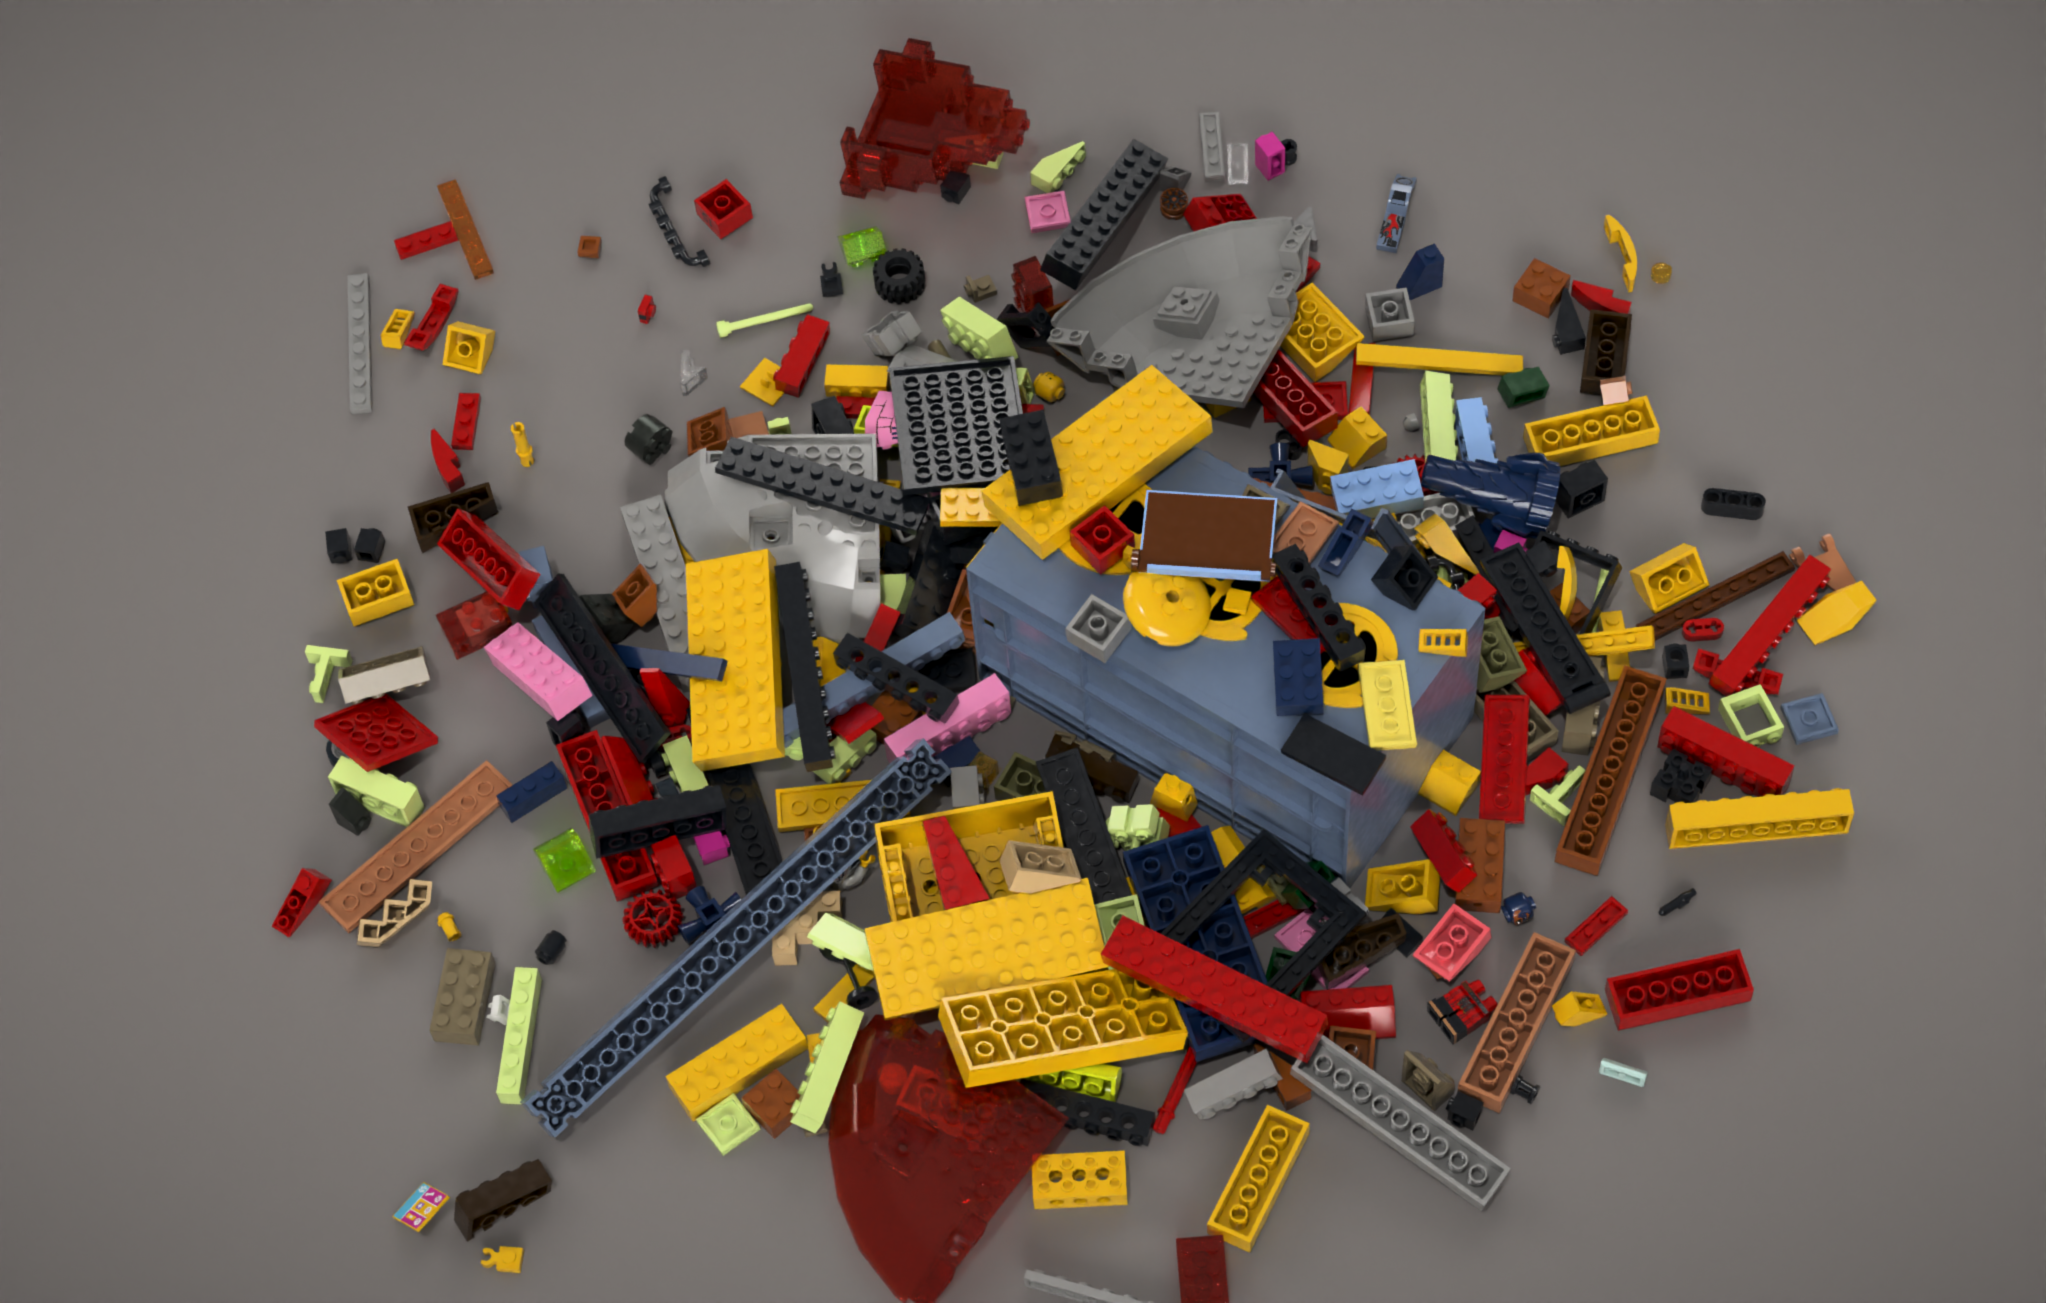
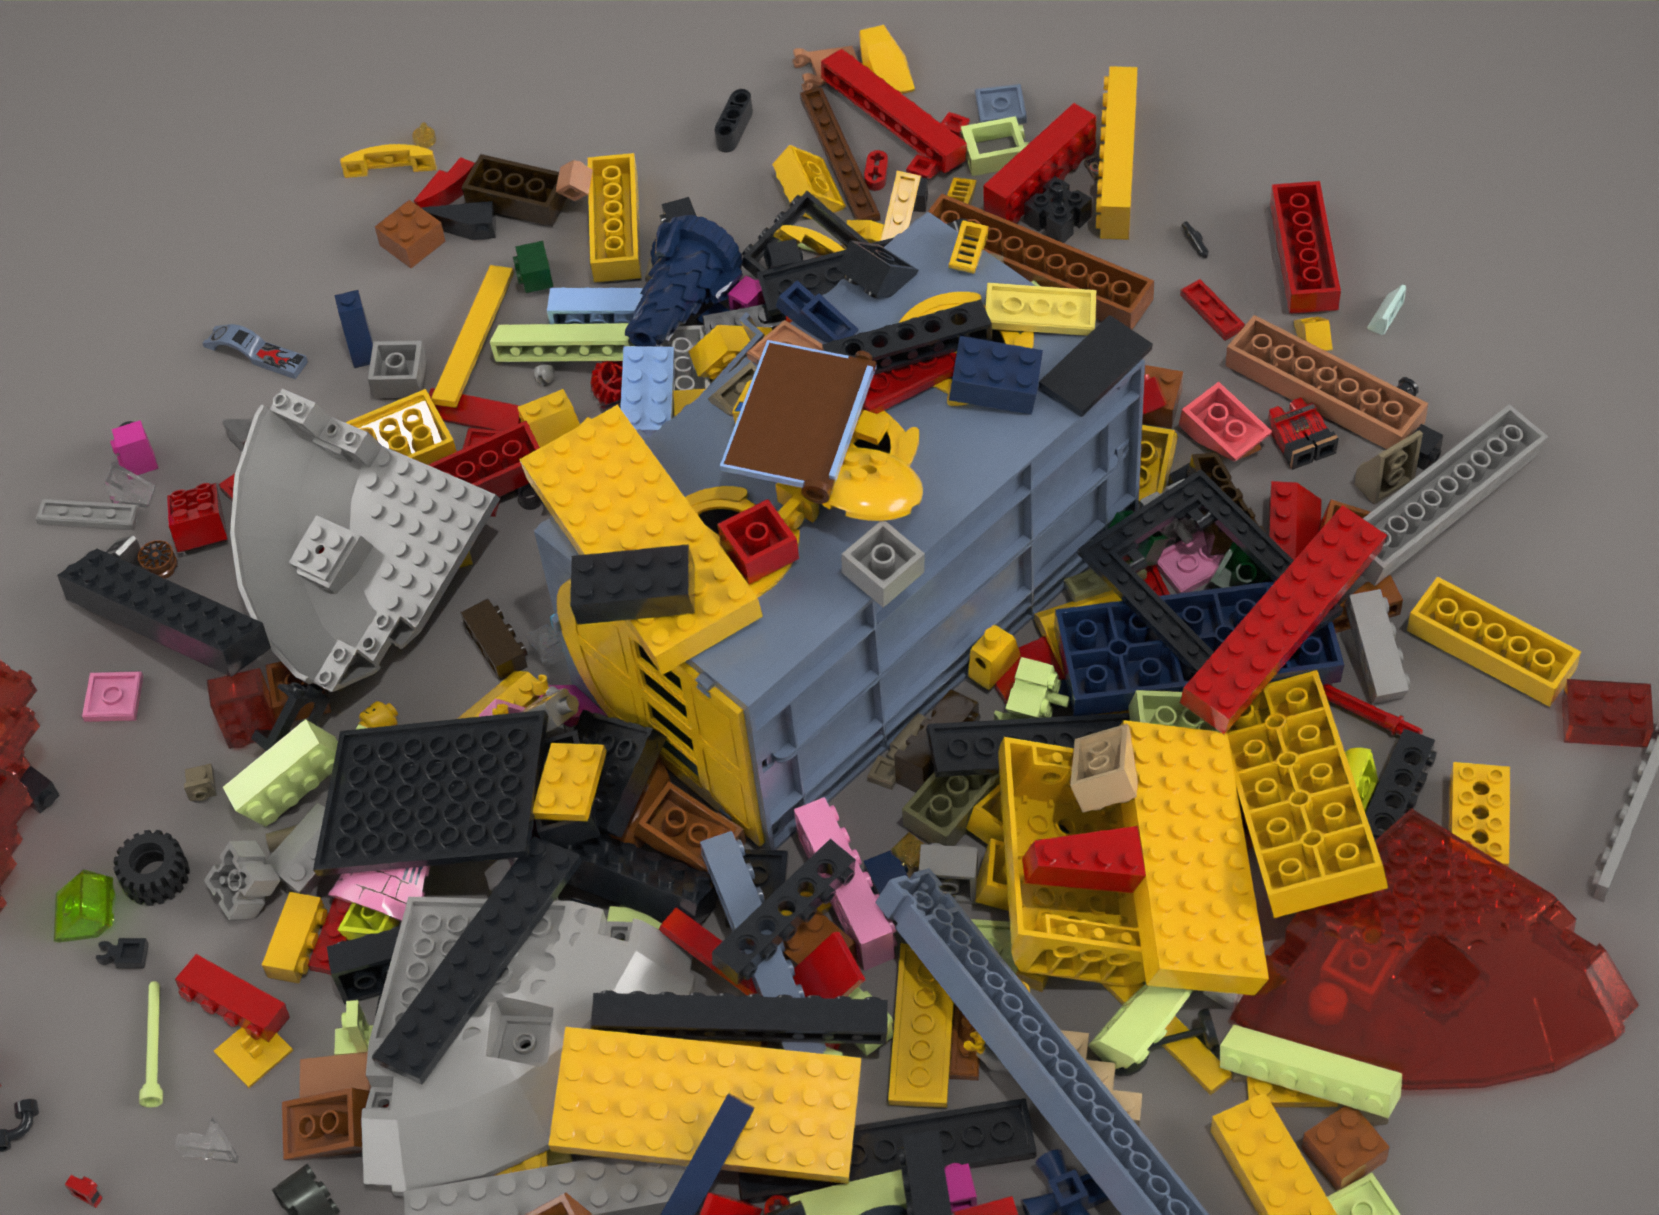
camera: 80 degrees left, 5 degrees down
(1053, 169) = (55, 676): yellowish green slope -> none
(1518, 908) = (1189, 363): dark blue head -> none

